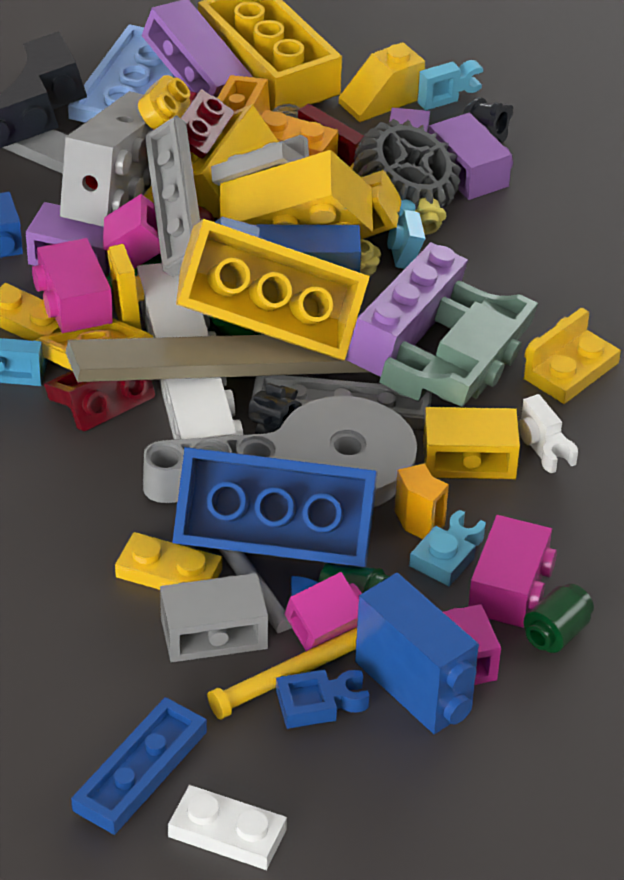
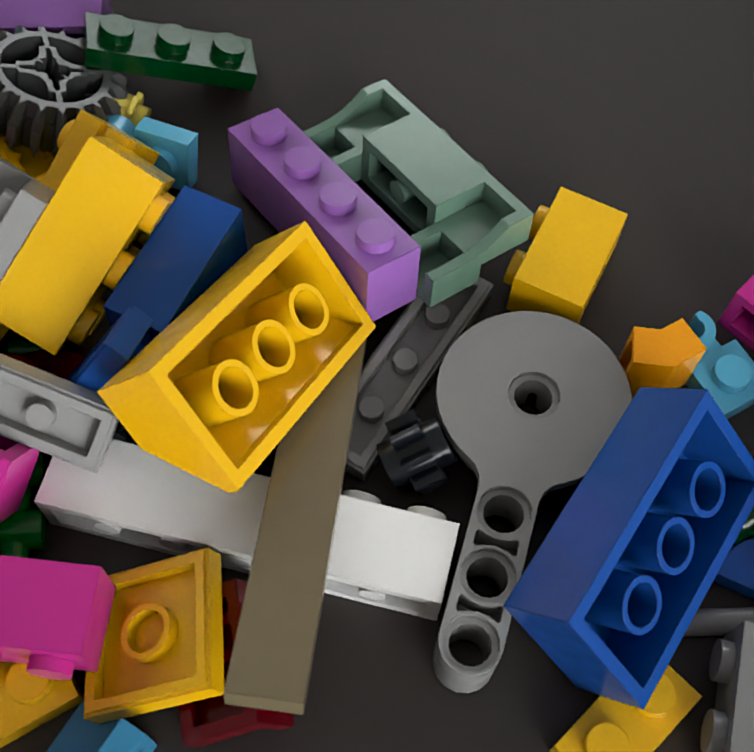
camera: 65 degrees left, 20 degrees up
(125, 286) = (78, 538): yellow plate -> none
(483, 208) = (168, 51): none -> dark green plate
(542, 431) = (590, 177): white plate -> none
(568, 358) = (461, 98): yellow bracket -> none

